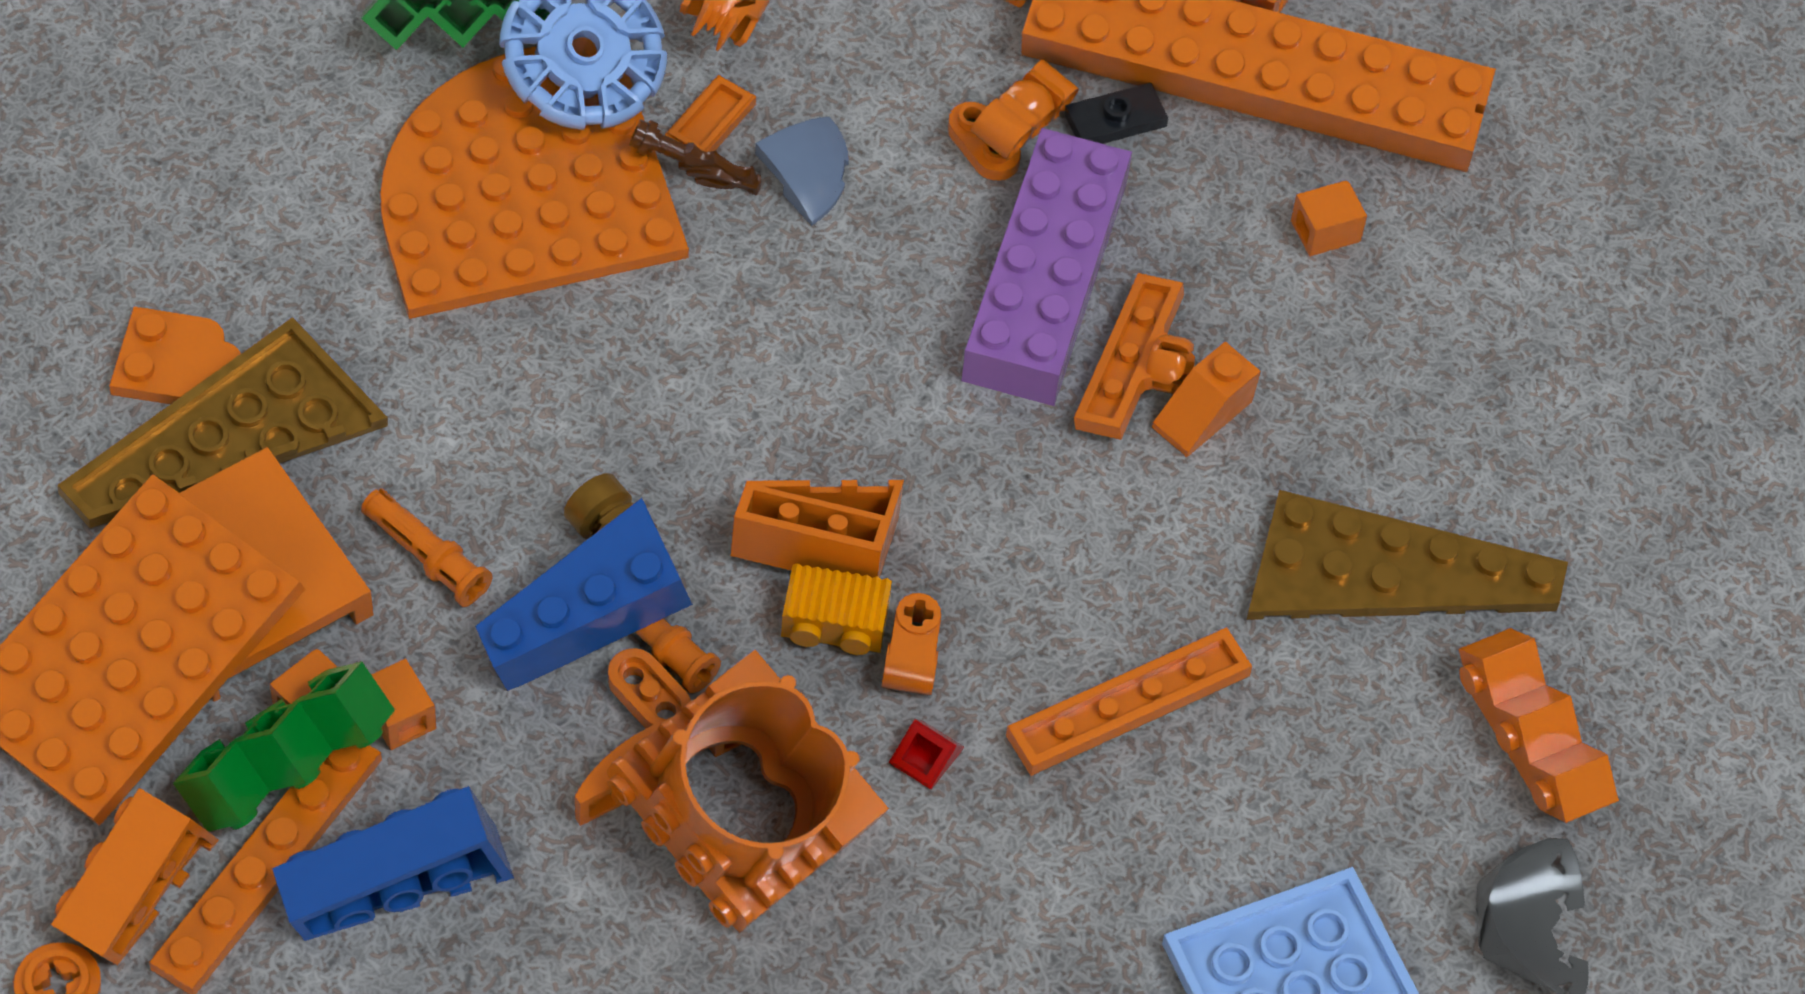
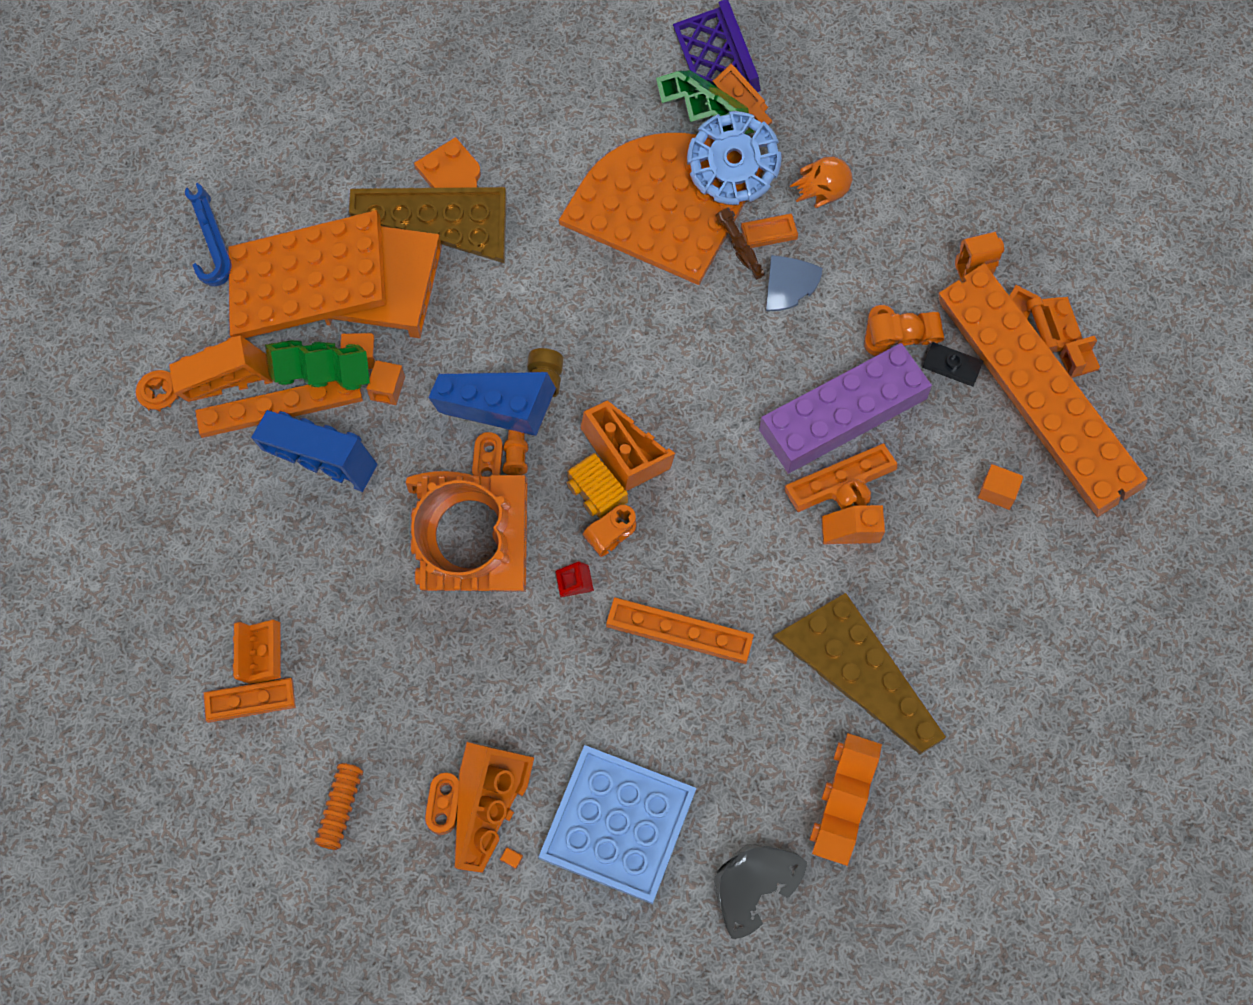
camera: 50 degrees right, 10 degrees up
(441, 559) = (464, 335): orange pin -> none

